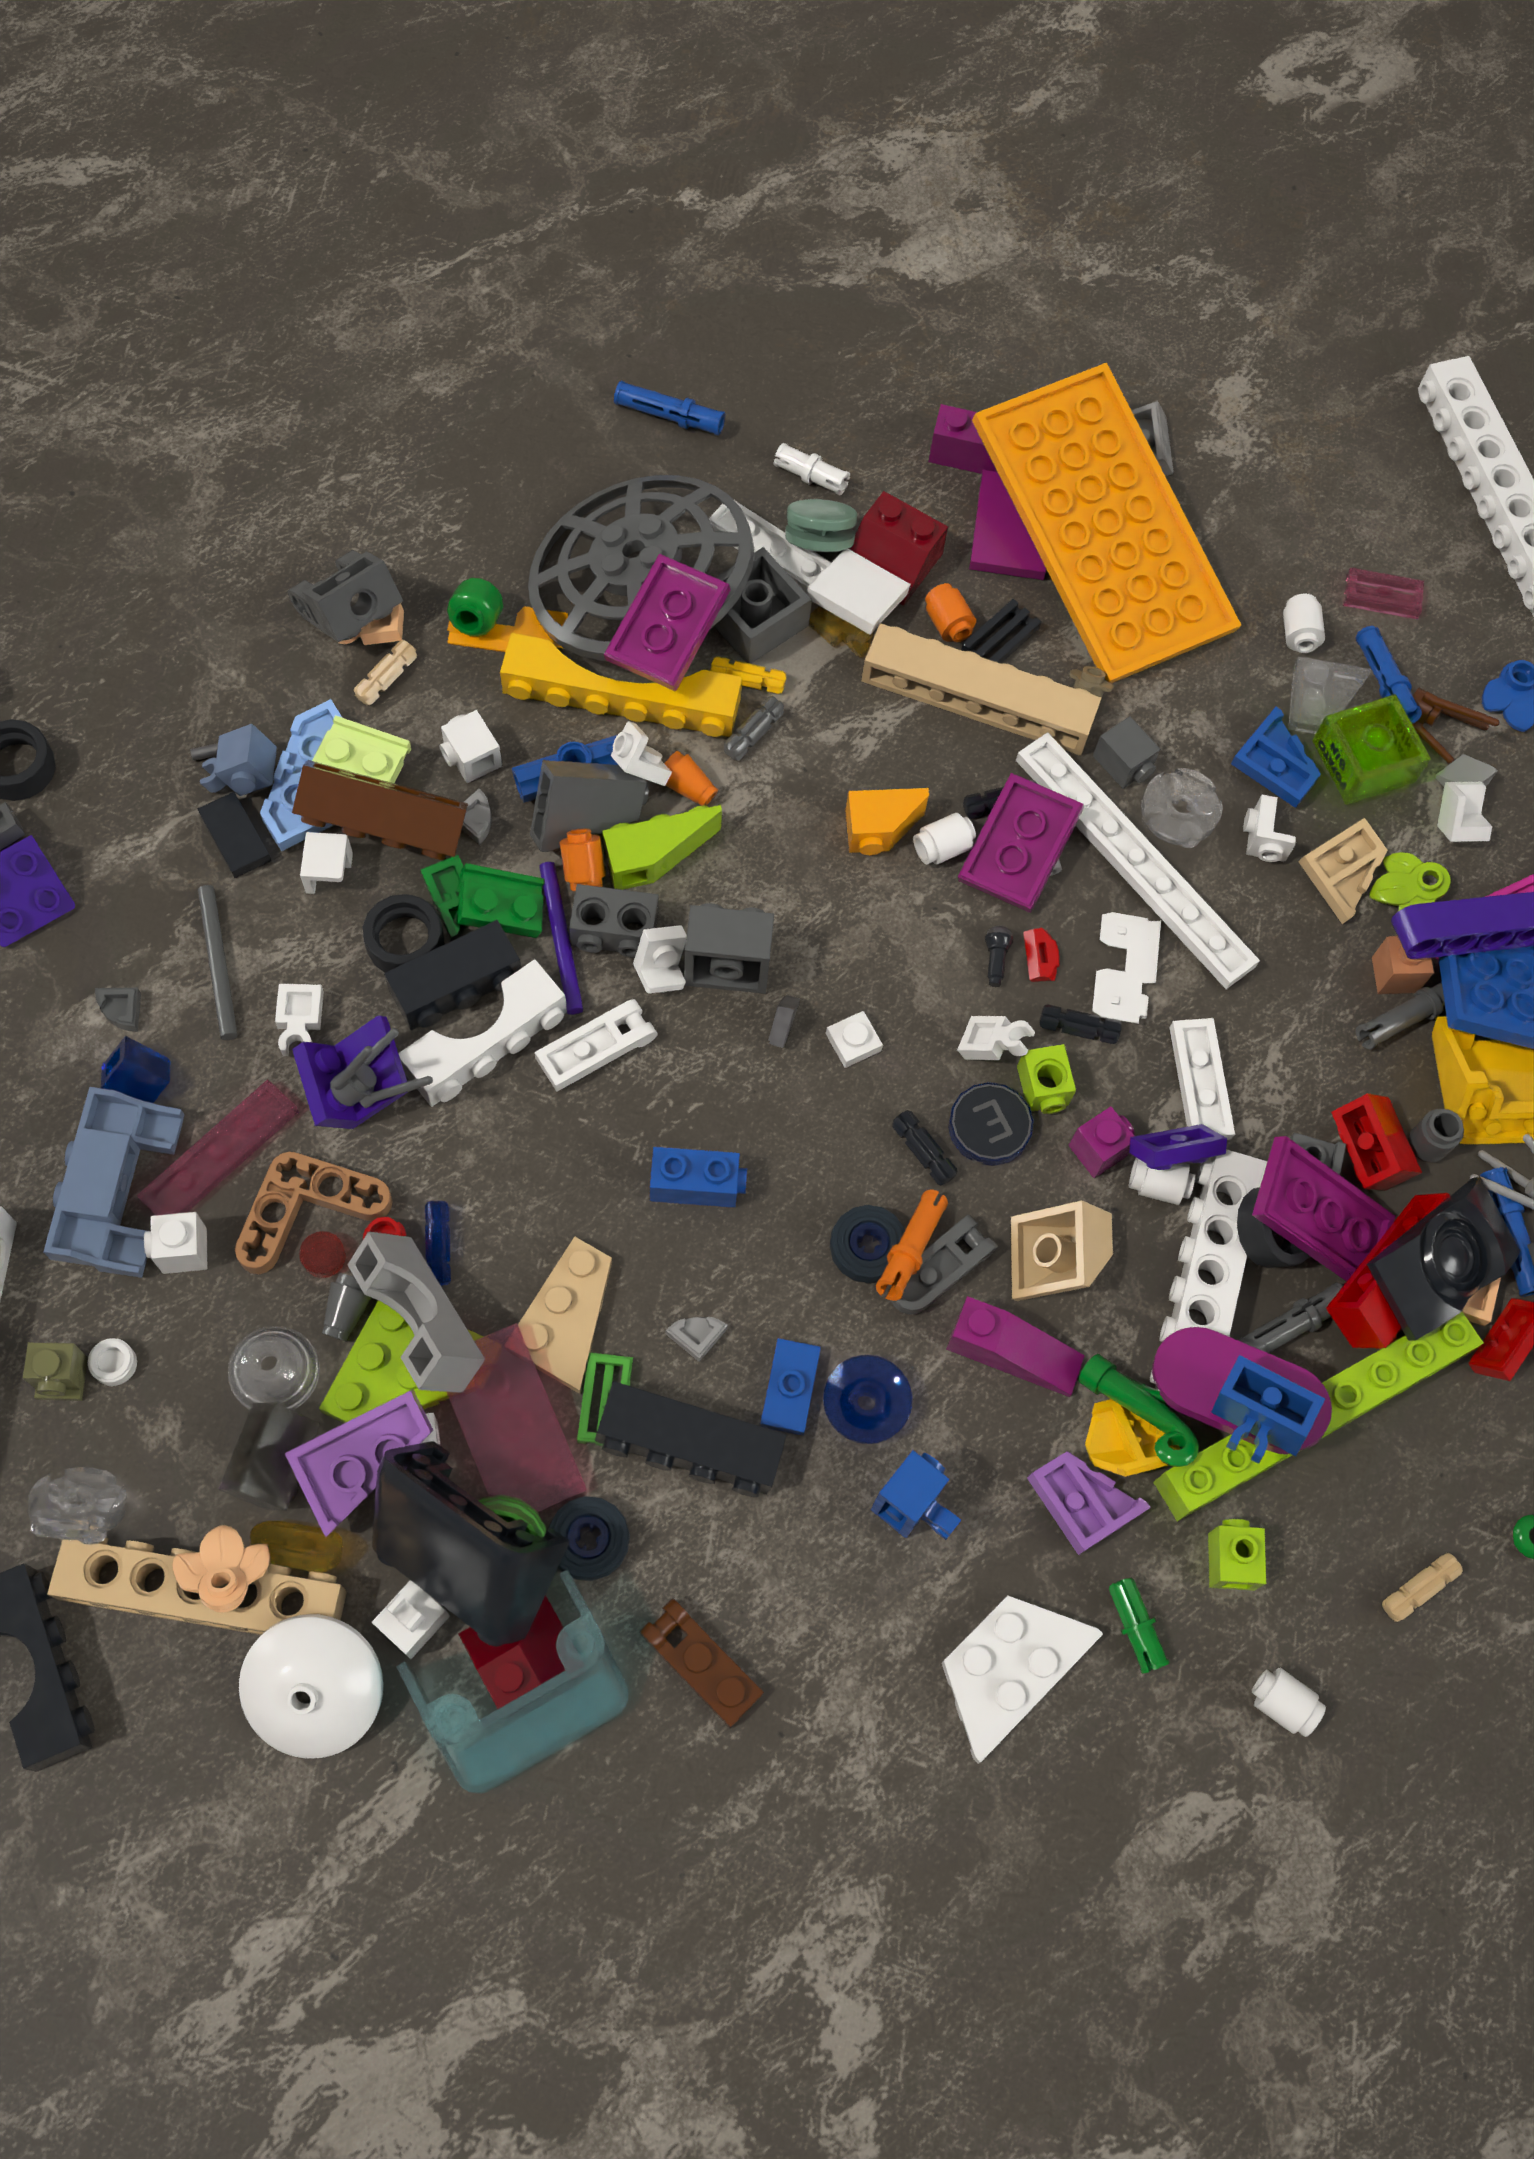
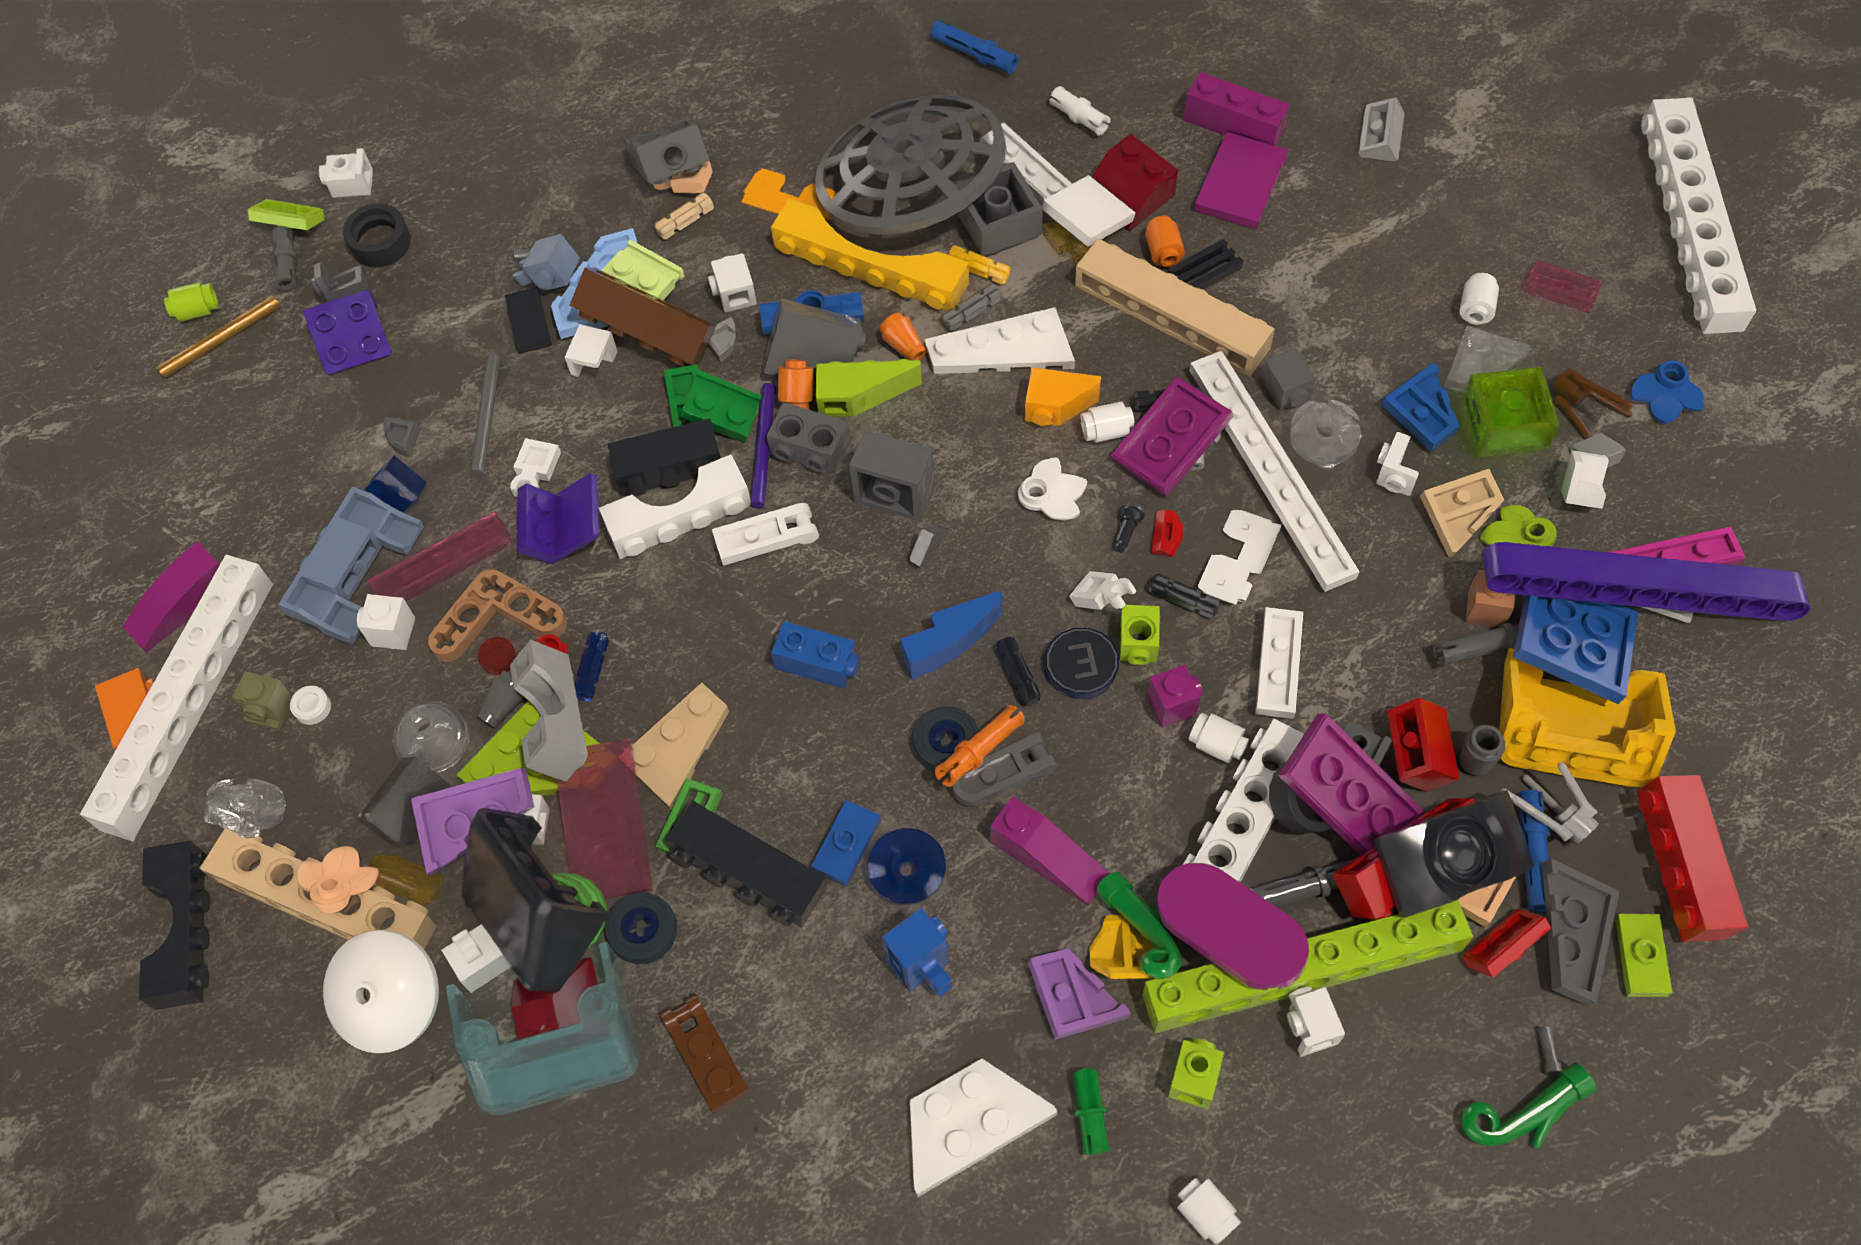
camera: 25 degrees right, 5 degrees down
(358, 1079) = (557, 523): dark grey plant -> none
(400, 907) = (631, 398): black tyre -> none
(475, 607) = (768, 175): green head -> none
(637, 758) = (864, 315): white bracket -> none
(659, 959) = (834, 475): white bracket -> none
(667, 622) = (912, 205): magenta tile -> none
(697, 1334) = (781, 783): light grey tile -> none
(810, 763) = (1019, 341): none -> white wing
(821, 525) = (1071, 153): sand green head -> none
(838, 1122) = (950, 634): none -> blue slope
(854, 1039) = (983, 571): white plate -> none
(908, 927) = (1057, 490): none -> white plate
(1059, 1249) = (1110, 775): tan slope -> none
(1092, 680) = (1273, 315): dark tan plate -> none
(1106, 523) = (1318, 188): light orange plate -> none
(1177, 1146) = (1247, 710): dark purple plate -> none
(1267, 1408) = (1241, 939): blue brick -> none
(1341, 1468) = (1314, 1020): none -> white brick
(1387, 671) = (1545, 352): blue pin -> none
(1422, 1587) = (1363, 1142): tan axle -> none

